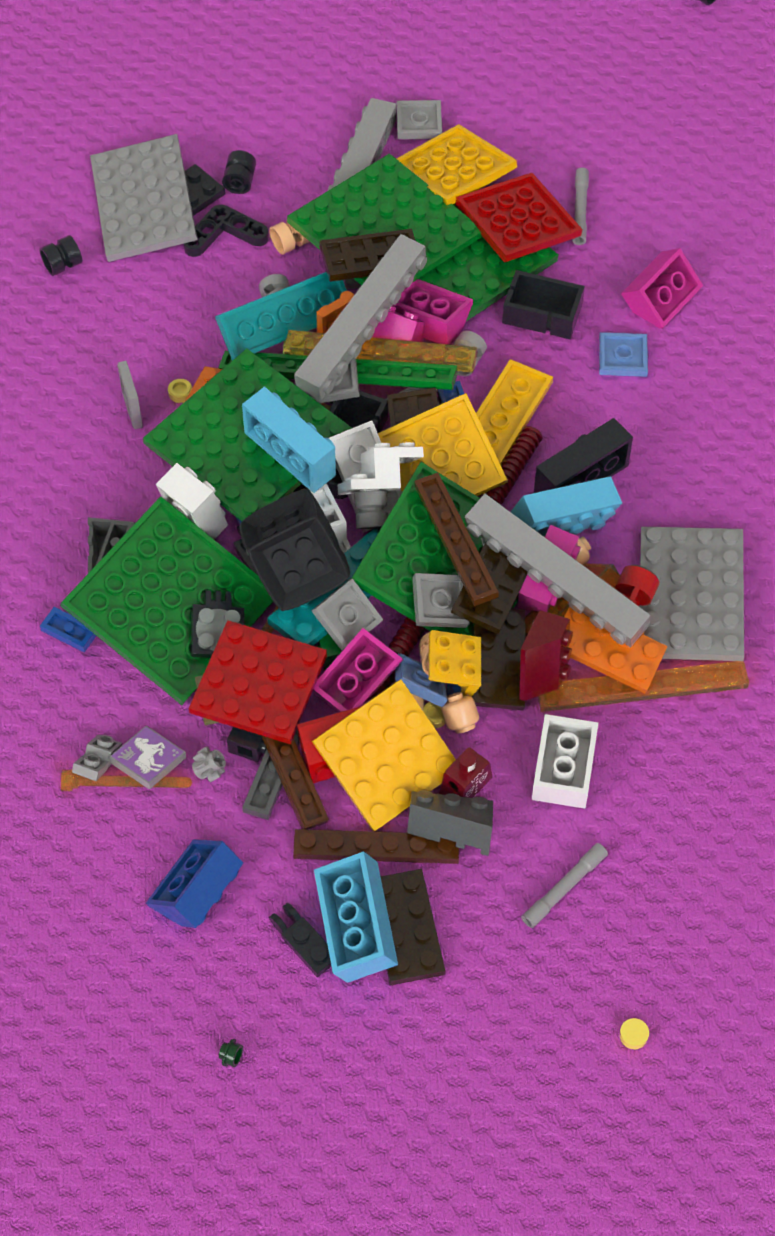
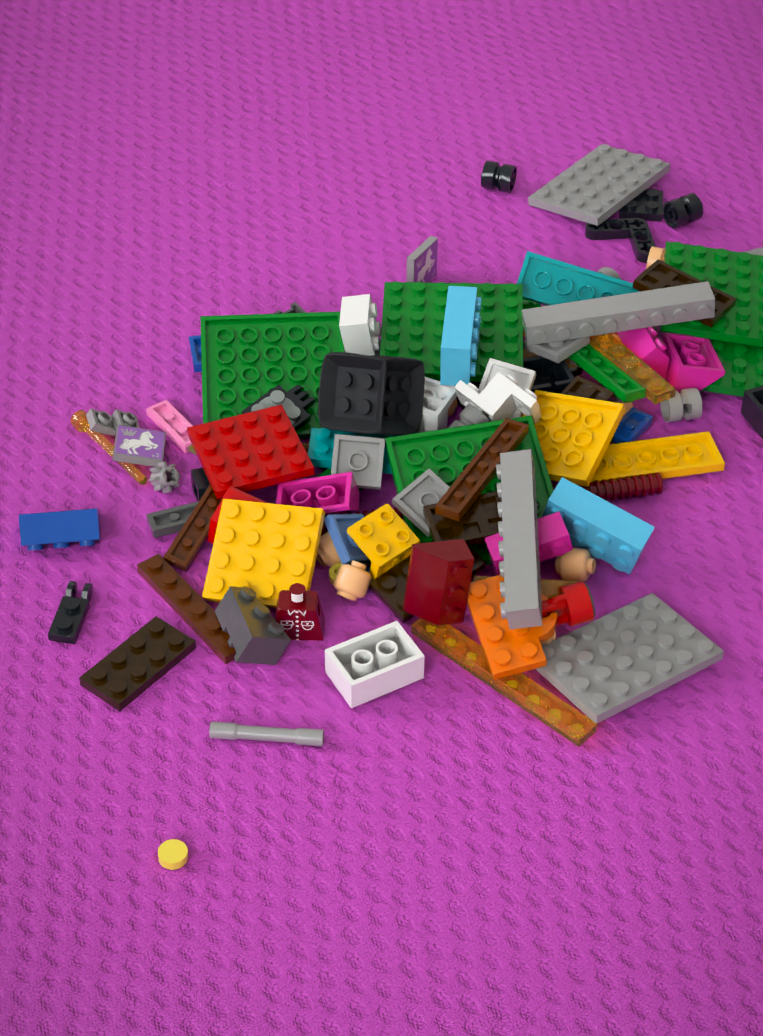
camera: 50 degrees right, 15 degrees down
(141, 712) = (171, 422): none -> bright pink tile
(355, 917) = (108, 619): medium azure brick -> none
(589, 458) = (679, 520): black brick -> none

